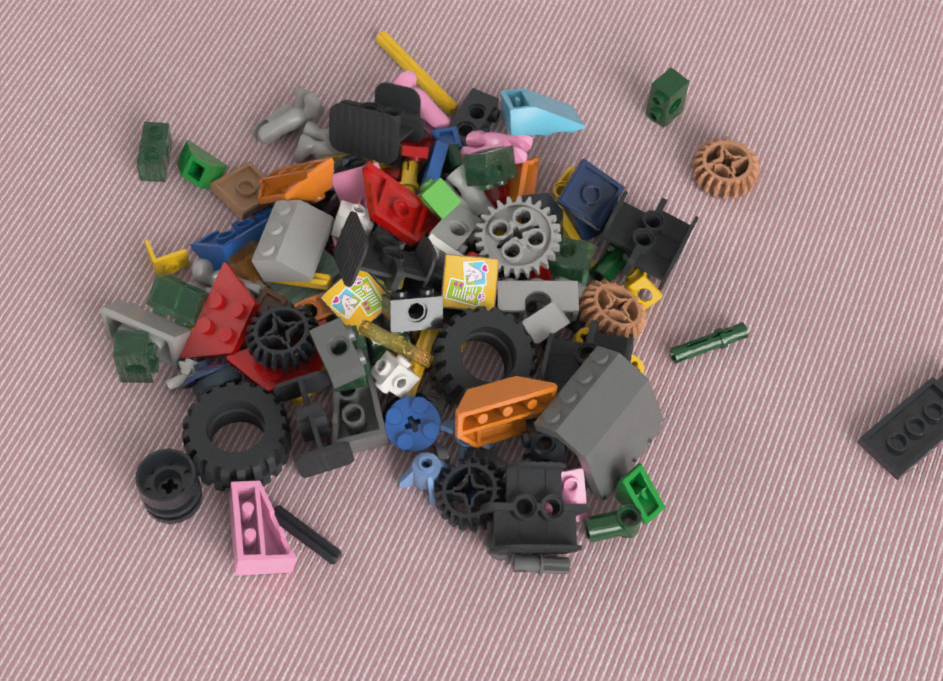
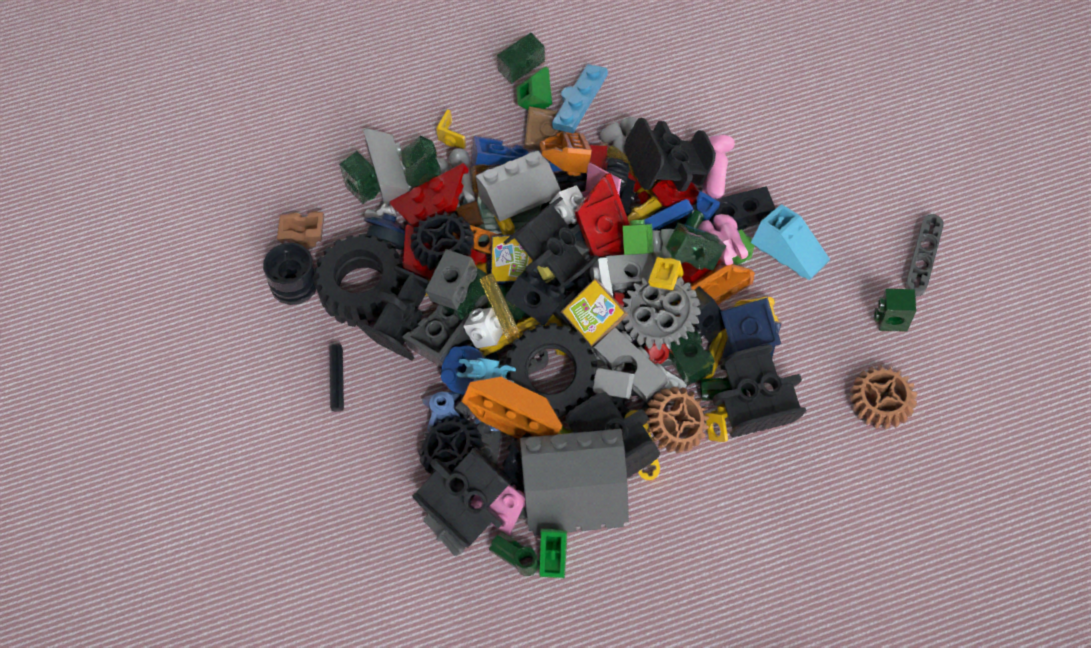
camera: 55 degrees right, 5 degrees up
(131, 444) = (301, 229): none -> nougat cylinder
(243, 144) = (579, 98): none -> dark azure hinge
(256, 535) = (306, 346): bright pink wedge -> none
(289, 117) = (626, 104): light grey piece -> none
(424, 80) = (749, 144): yellow axle -> none
(439, 403) = (484, 369): none -> medium azure pin
(495, 202) = (665, 273): none -> yellow bracket
(636, 46) = (924, 254): none -> dark grey beam
(715, 340) = (722, 502): dark green pin -> none

